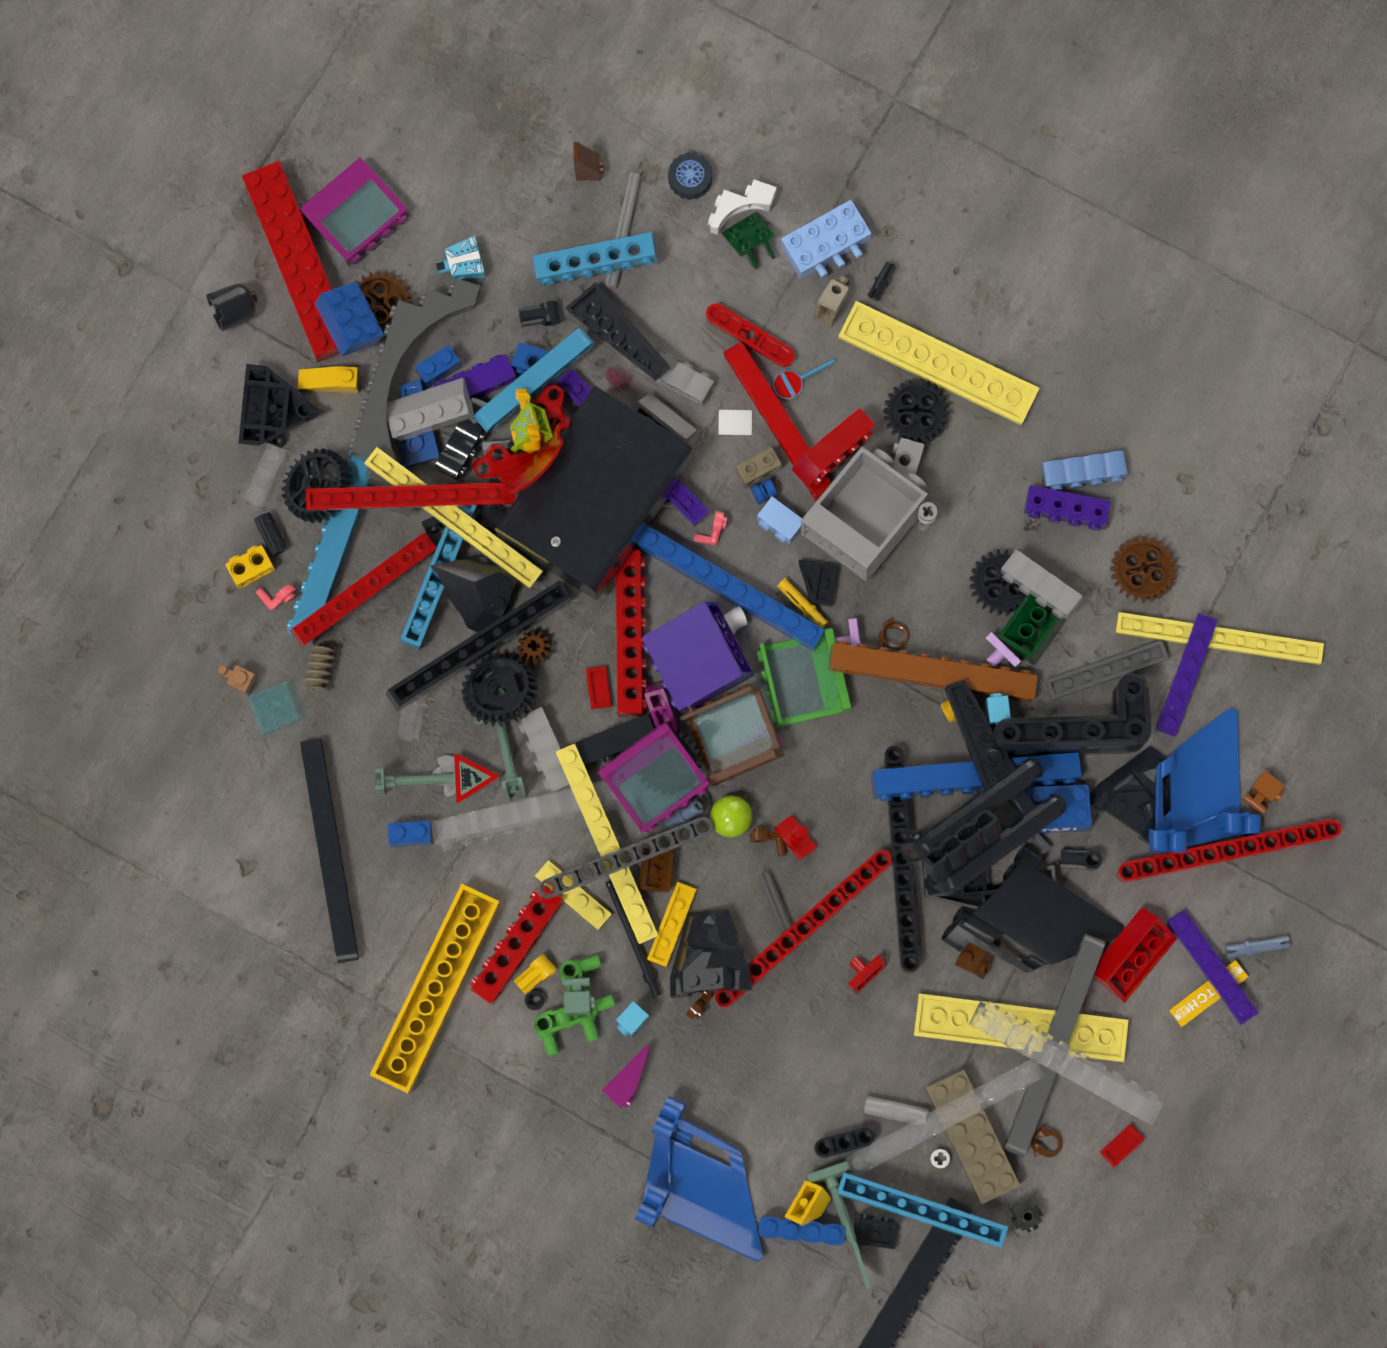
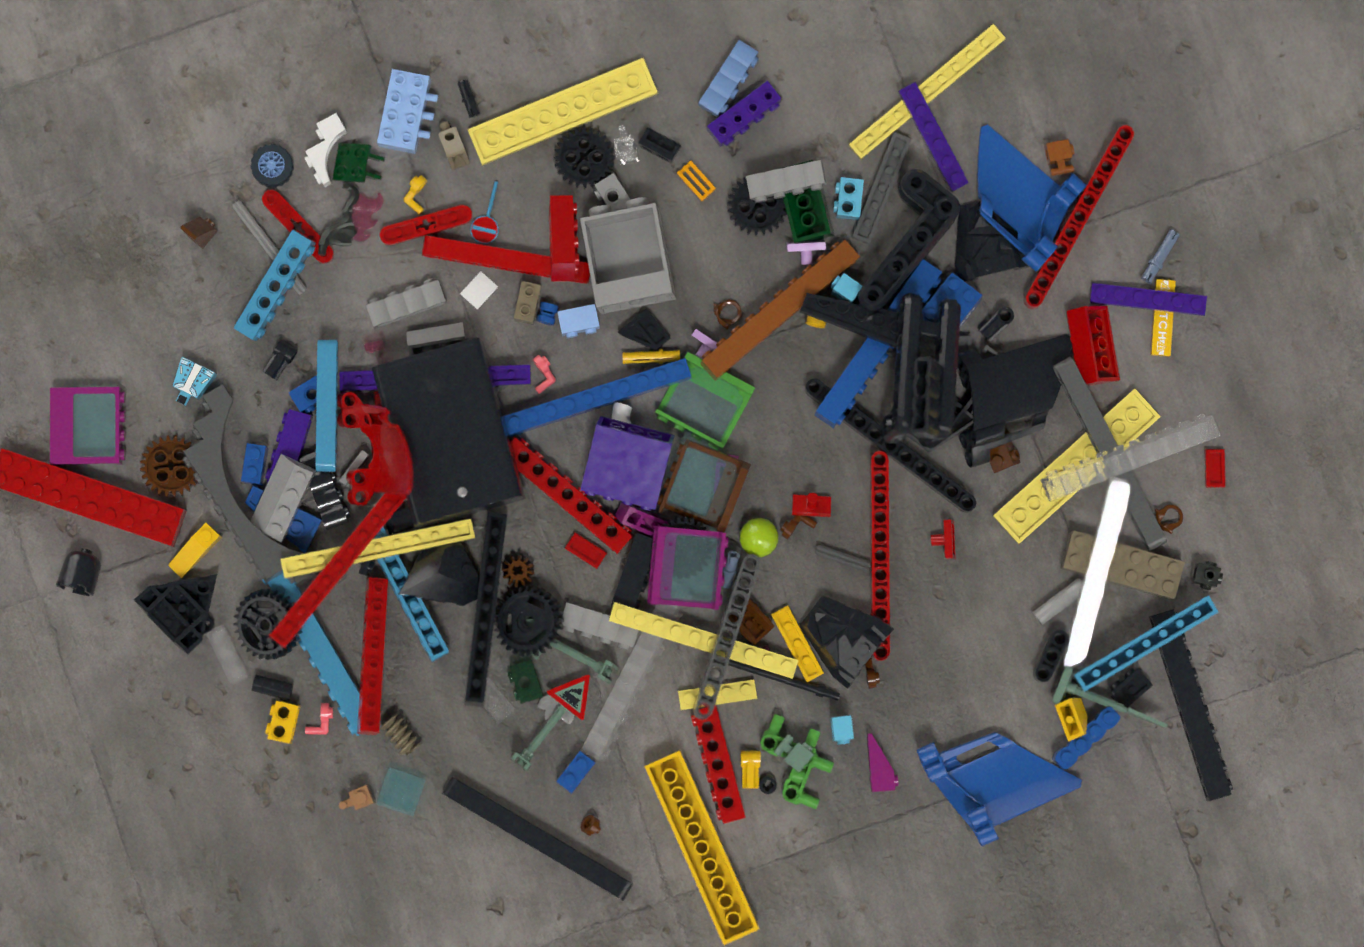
camera: 55 degrees left, 5 degrees up
(349, 319) = (166, 498): blue brick -> none
(376, 884) = (590, 825): none -> reddish brown tile
(448, 743) = (527, 670): none -> clear green brick
(530, 427) = (360, 438): torso -> none
(608, 322) = (329, 316): black wing -> none
(660, 219) = (285, 213): none -> red piece
(700, 278) = (355, 221): none -> piece
(776, 300) = (417, 185): none -> yellow plate
(925, 517) = (668, 221): light grey pin -> none
(944, 1163) = (1123, 599): white bush -> none
(953, 436) = (625, 147): none -> clear brick
(980, 462) = (659, 145): none -> black hinge
(980, 499) = (701, 175): none -> light orange tile
(1077, 654) = (853, 199): none -> medium azure brick
(1138, 551) = (848, 107): reddish brown gear -> none

